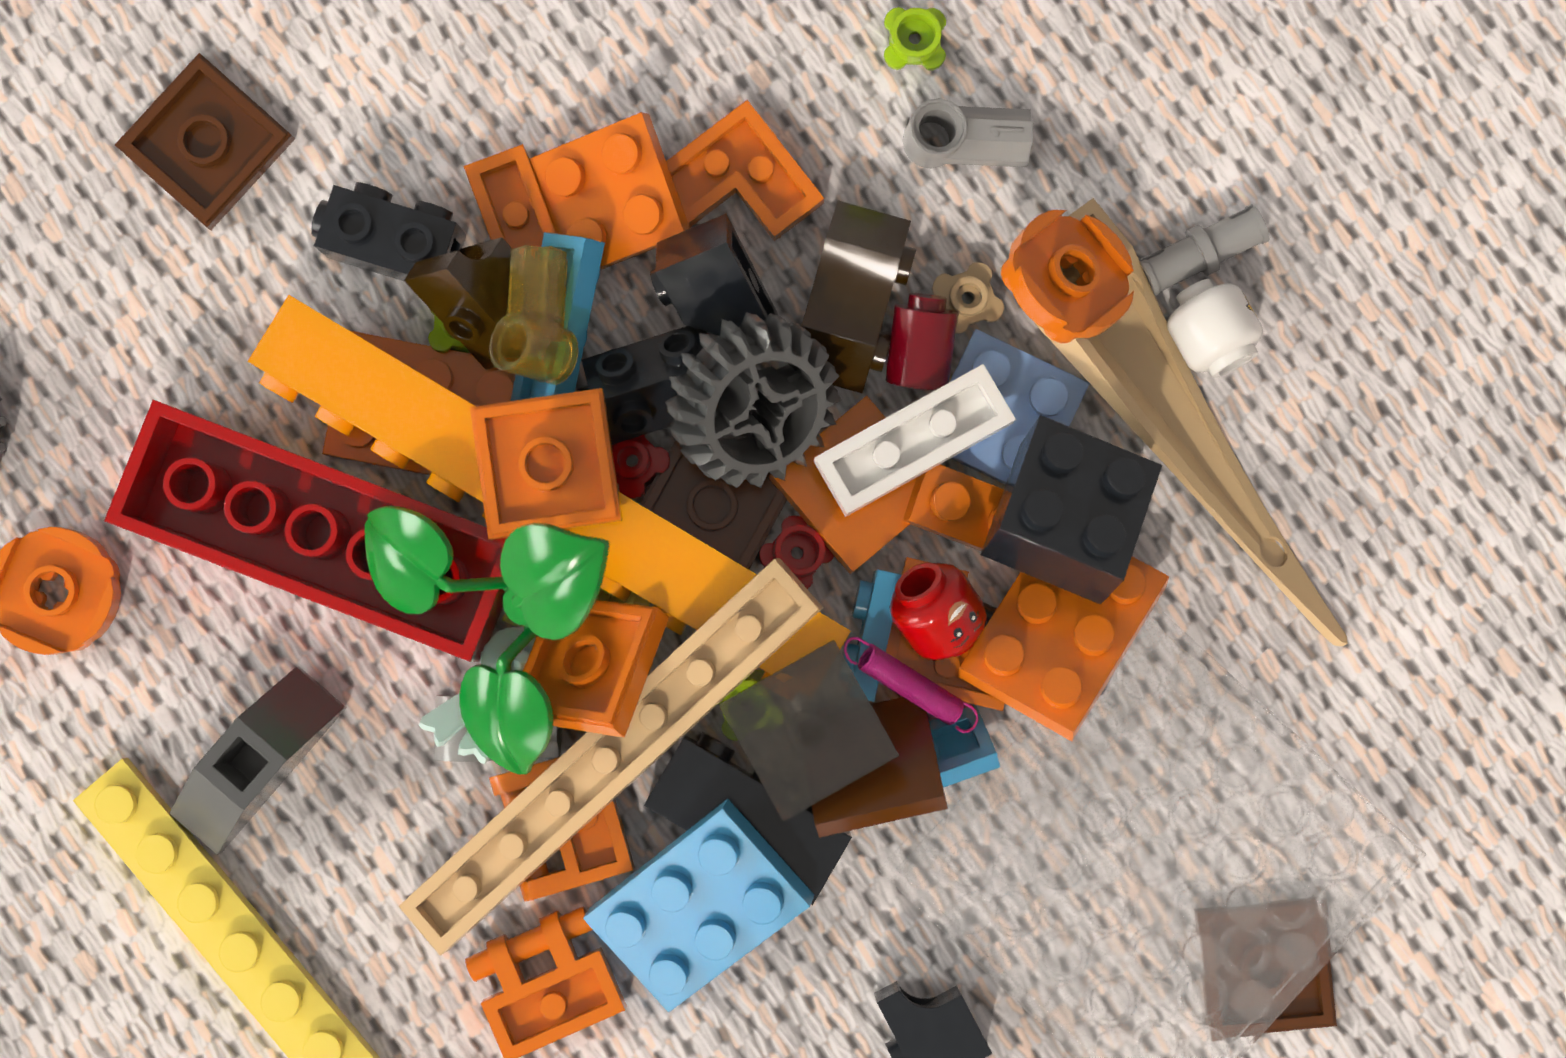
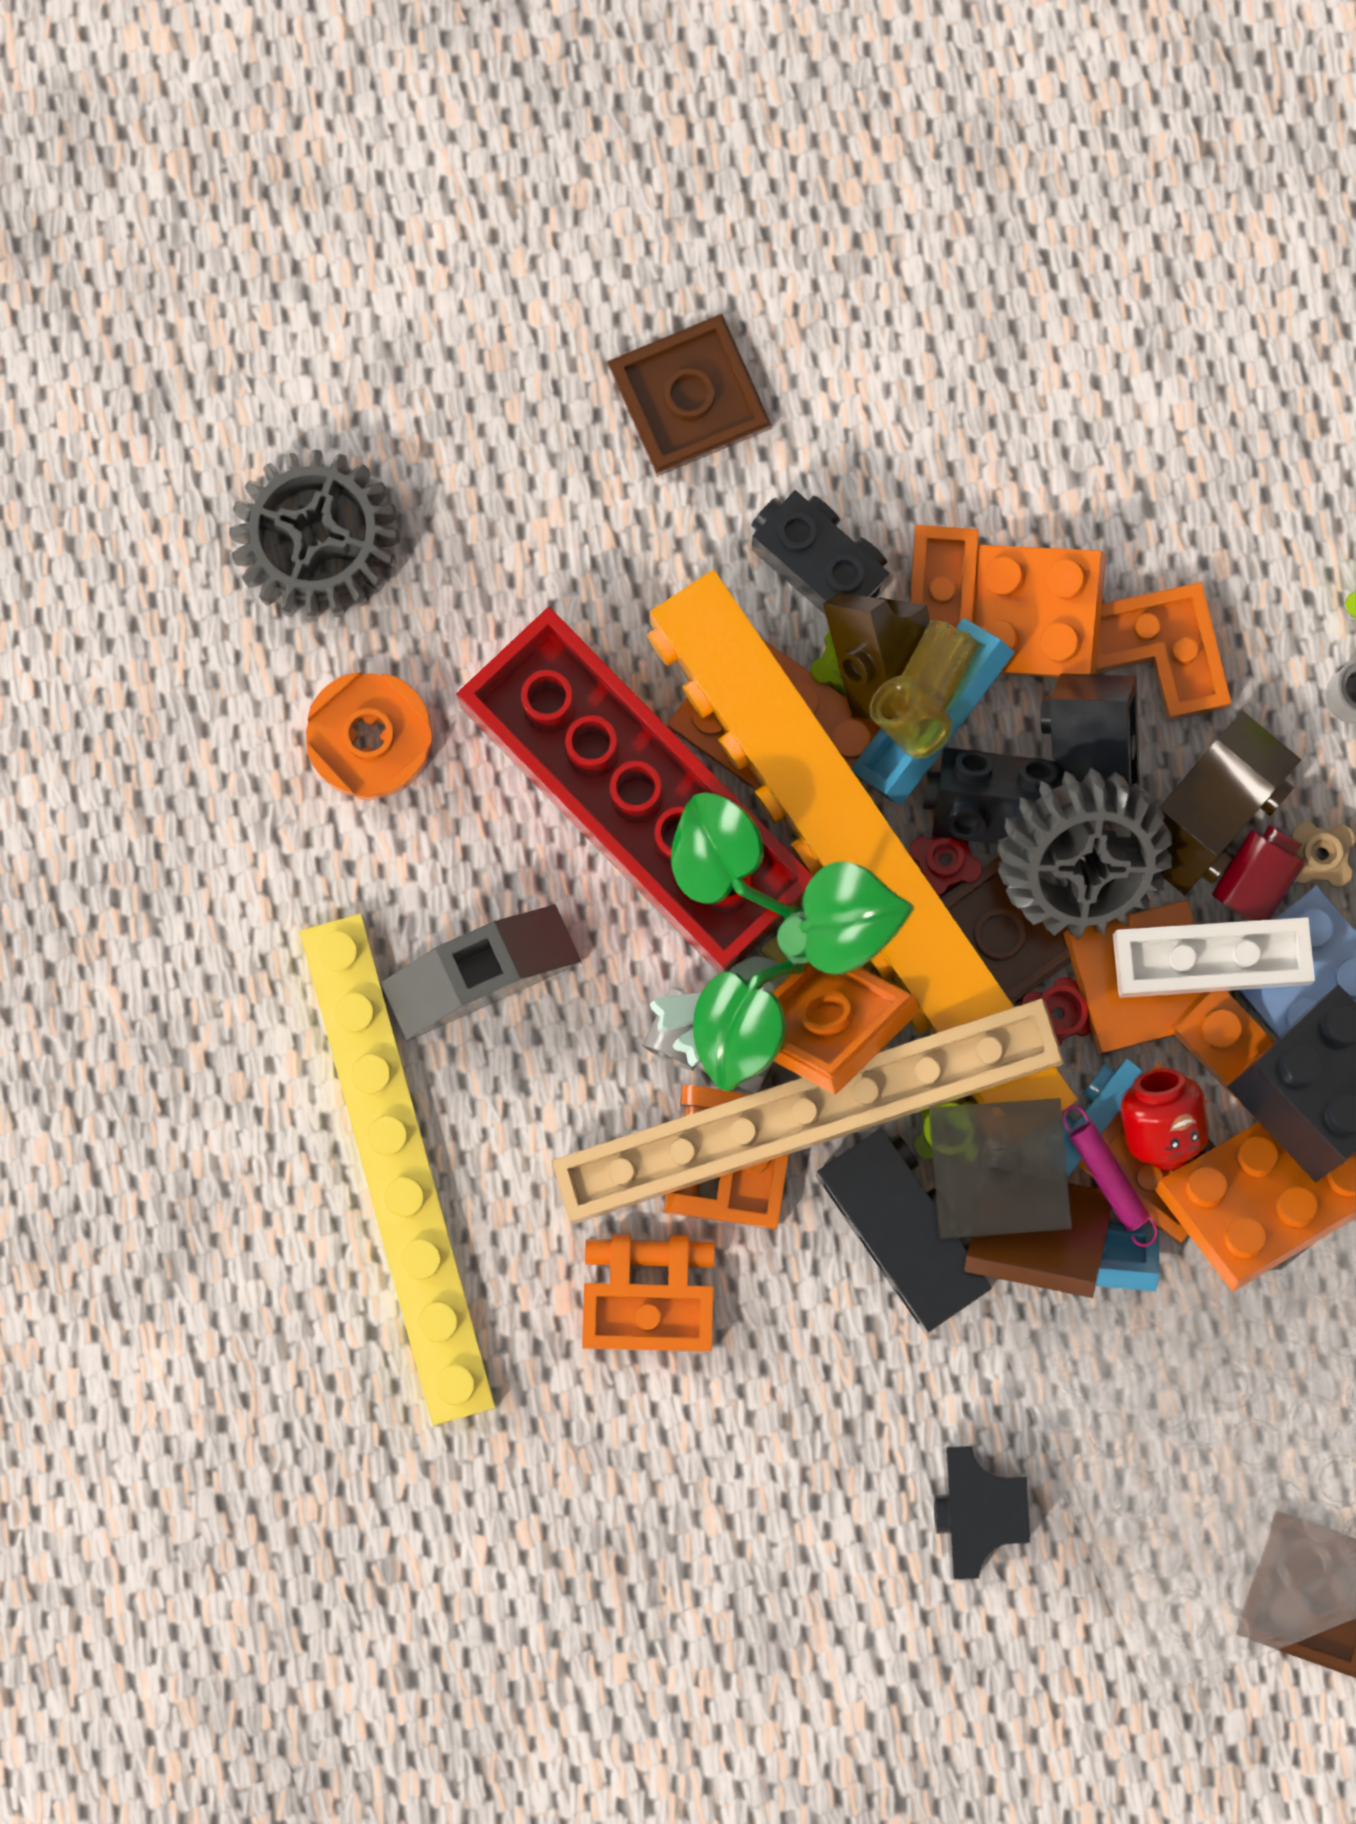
camera: 30 degrees right, 5 degrees down
(546, 462) = (877, 817): orange plate -> none
(699, 906) = (823, 1286): plate -> none

